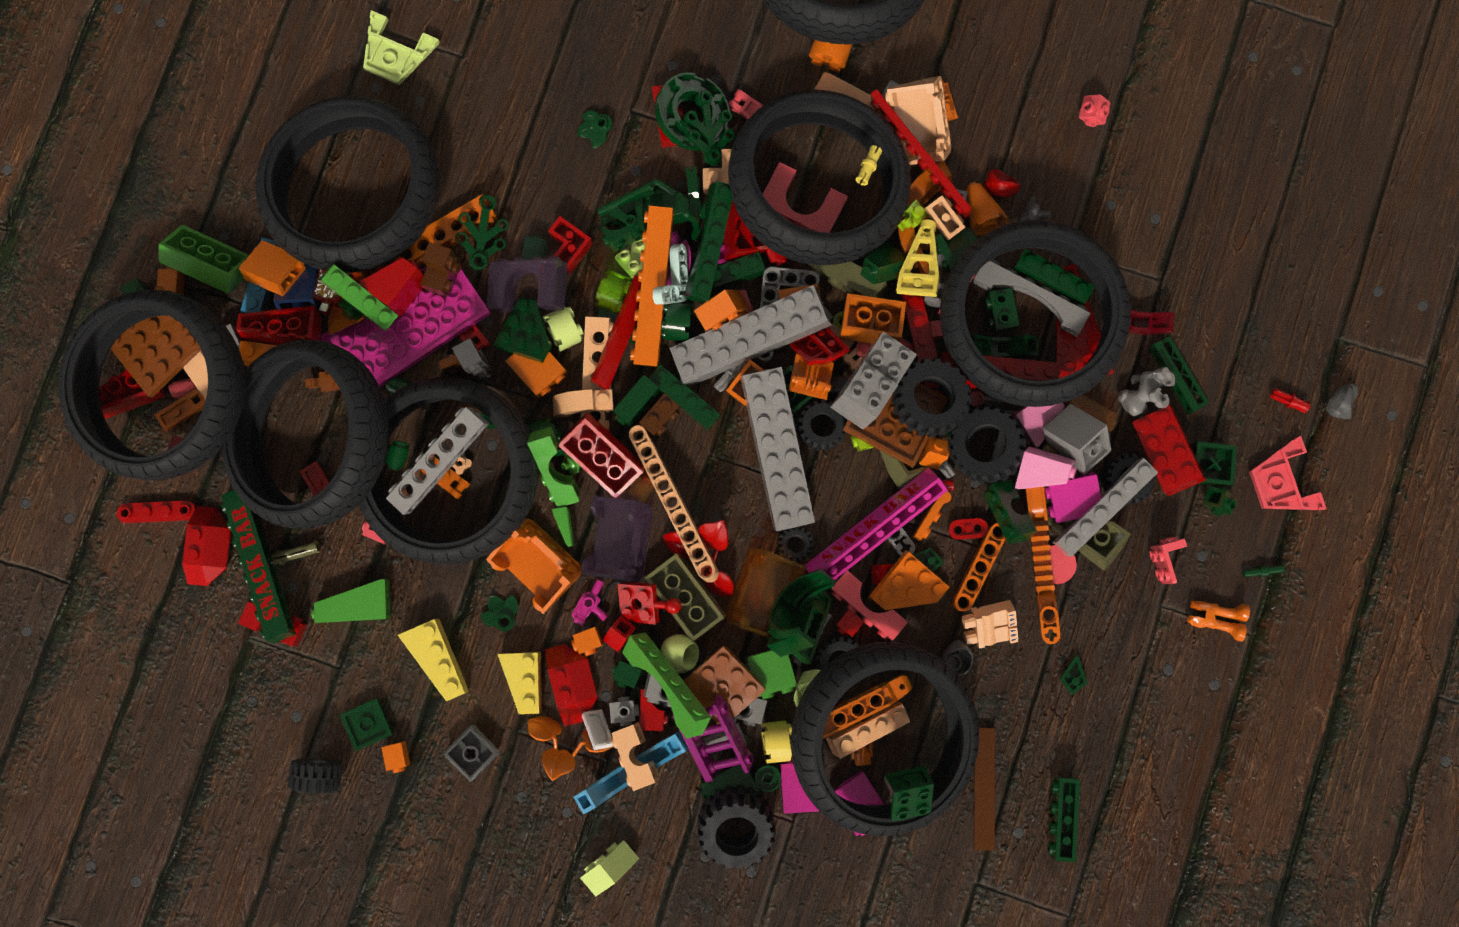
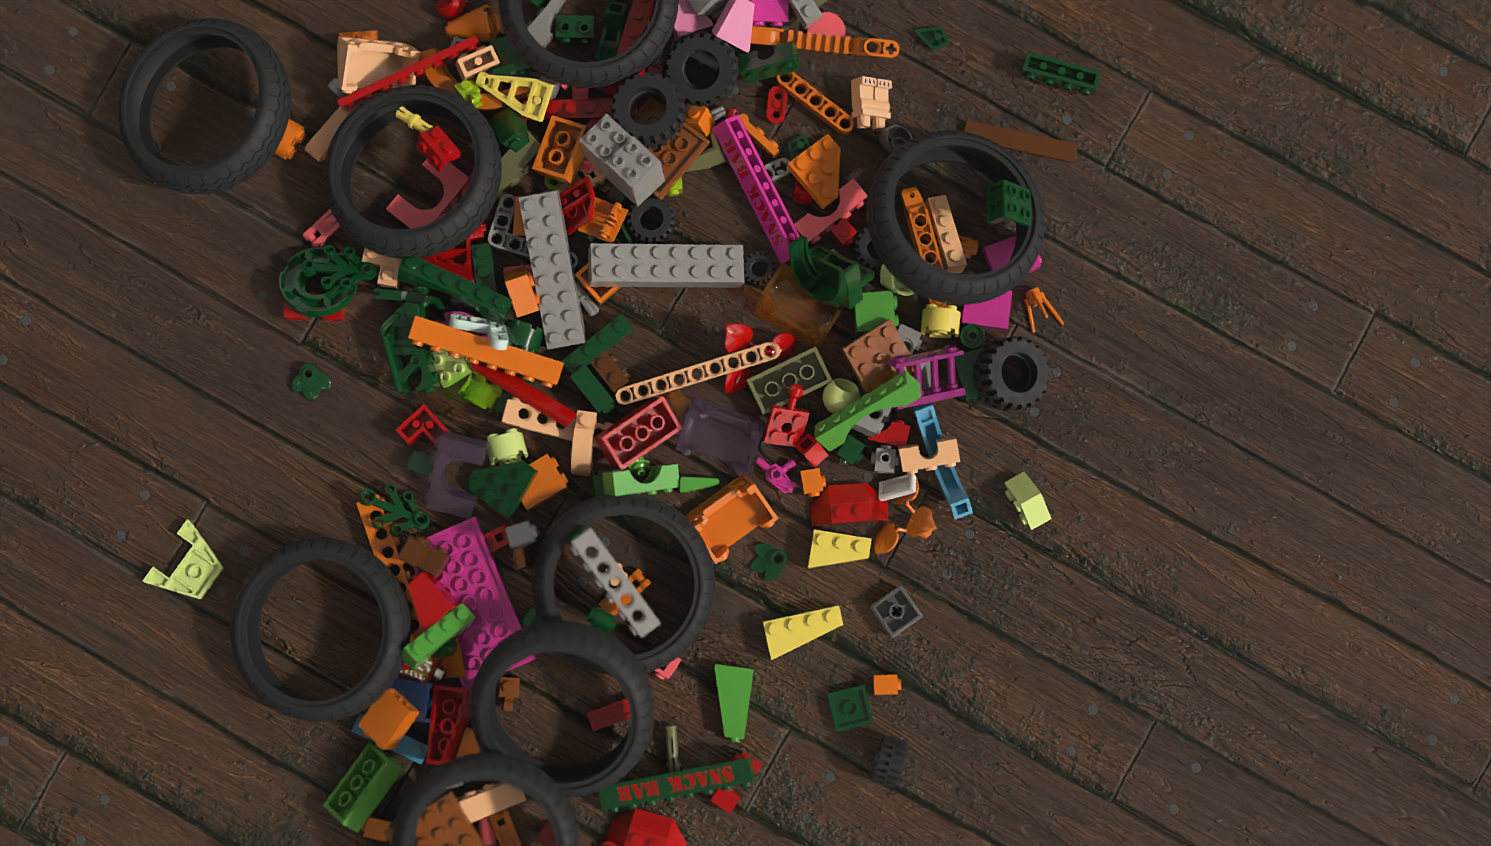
camera: 80 degrees left, 0 degrees up
(823, 836) = (1036, 298): none -> orange plant
(845, 192) = (437, 147): none -> red bracket

